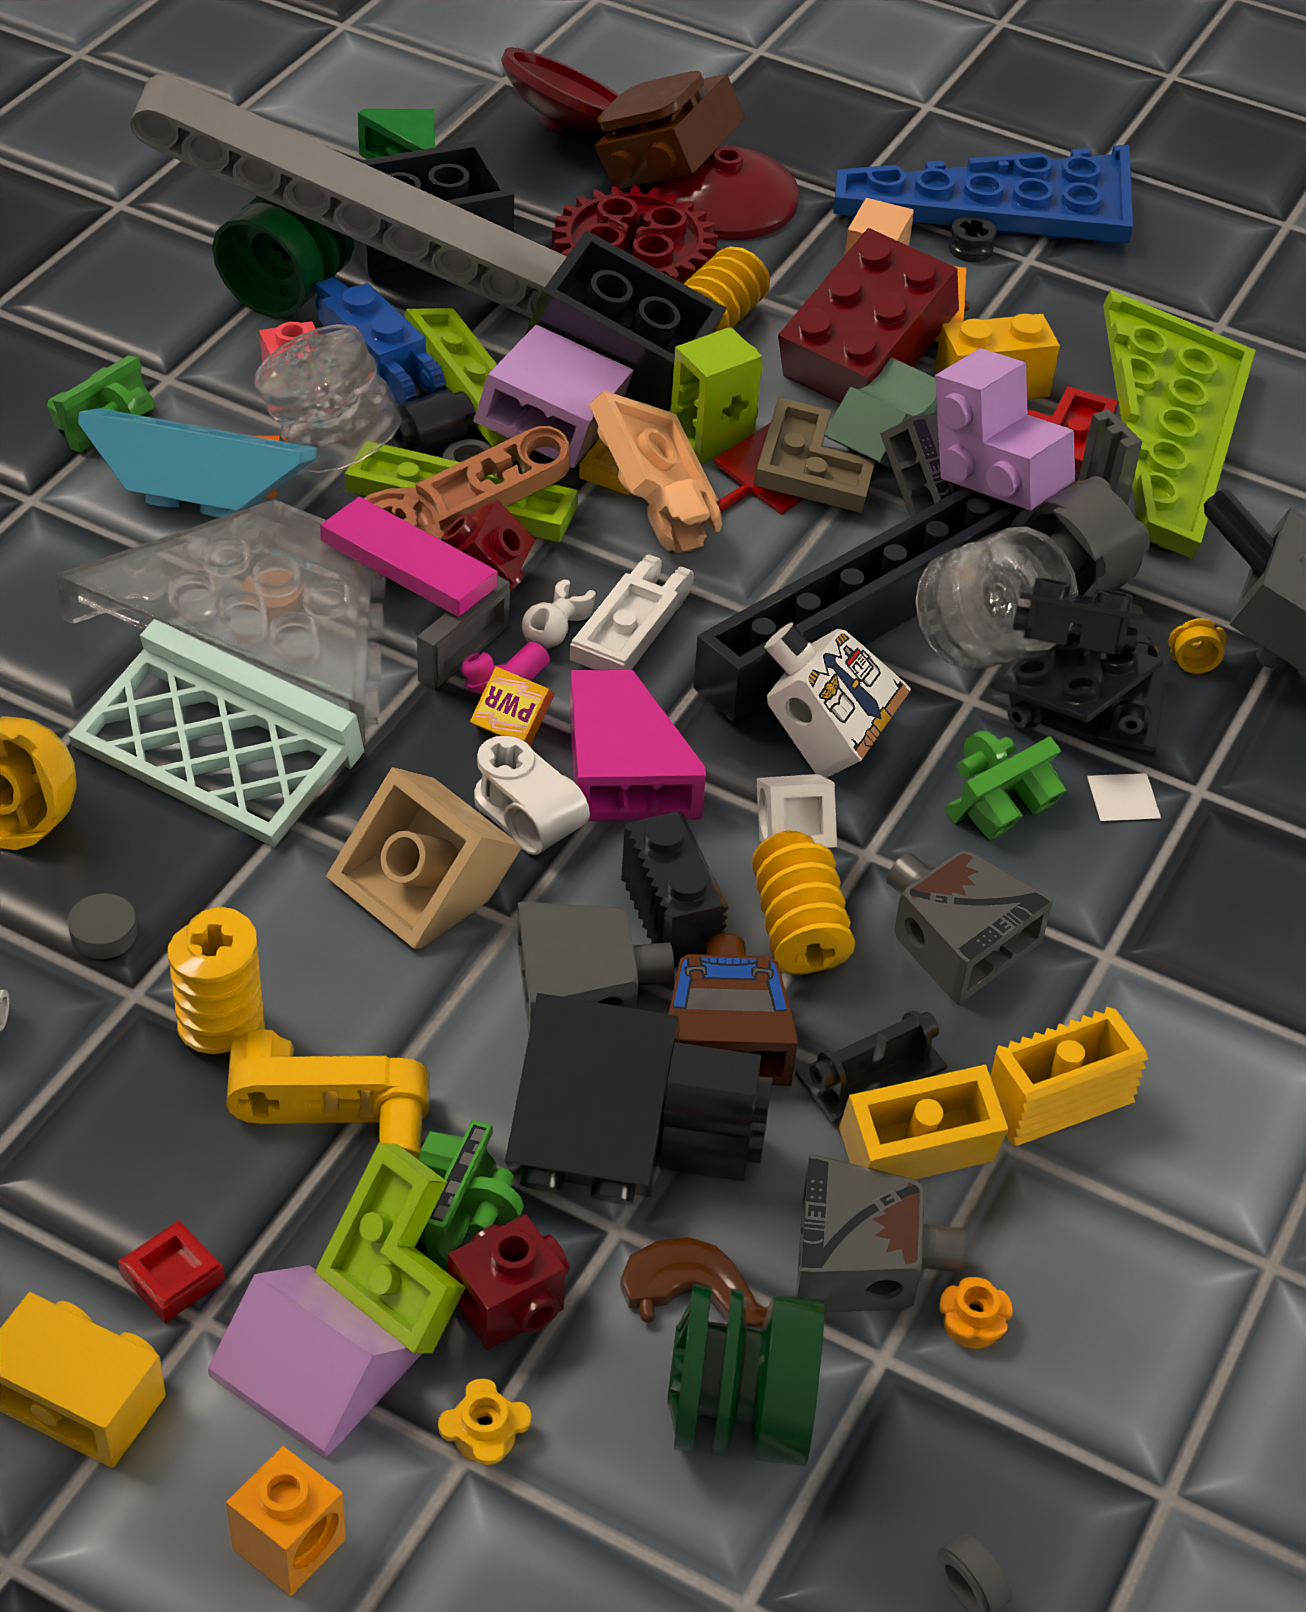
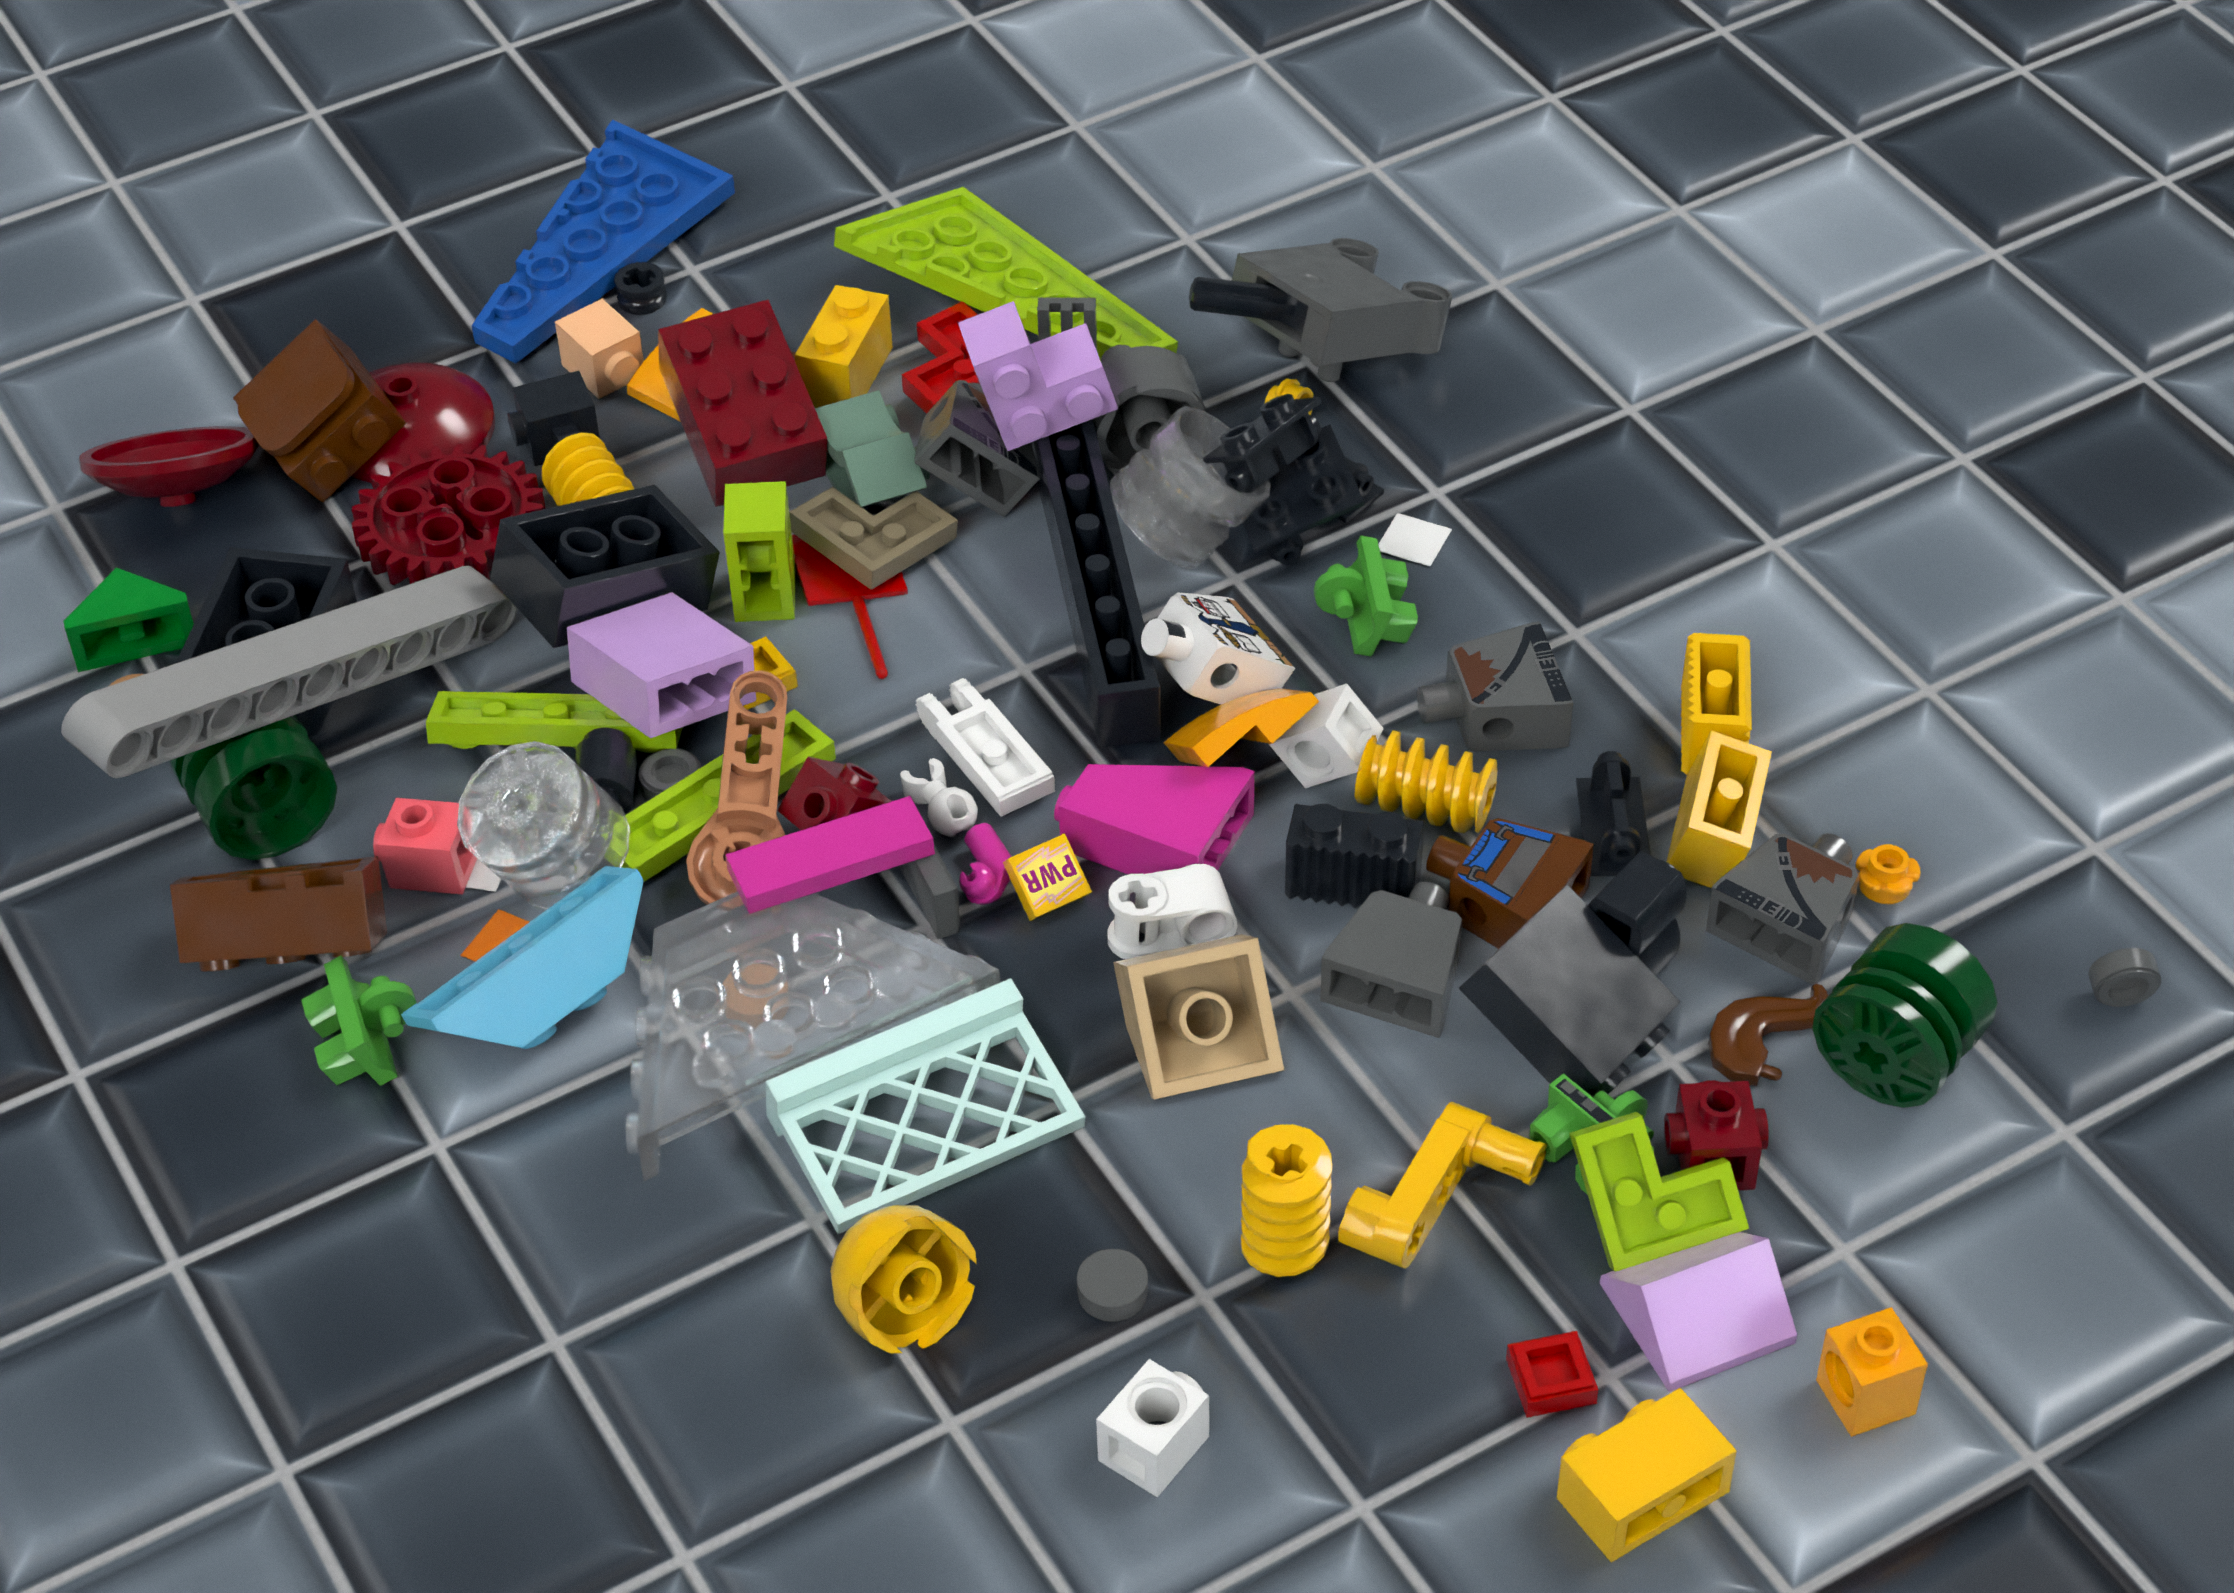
camera: 55 degrees left, 0 degrees up
(171, 321) = (279, 913): none -> reddish brown wedge
(389, 337) = (428, 759): blue hinge -> none
(484, 1442) = (1828, 1231): yellow plate -> none
(659, 467) = (836, 638): light nougat plate -> none
(753, 745) = (1252, 717): none -> light orange slope
(787, 247) = (550, 412): none -> black brick

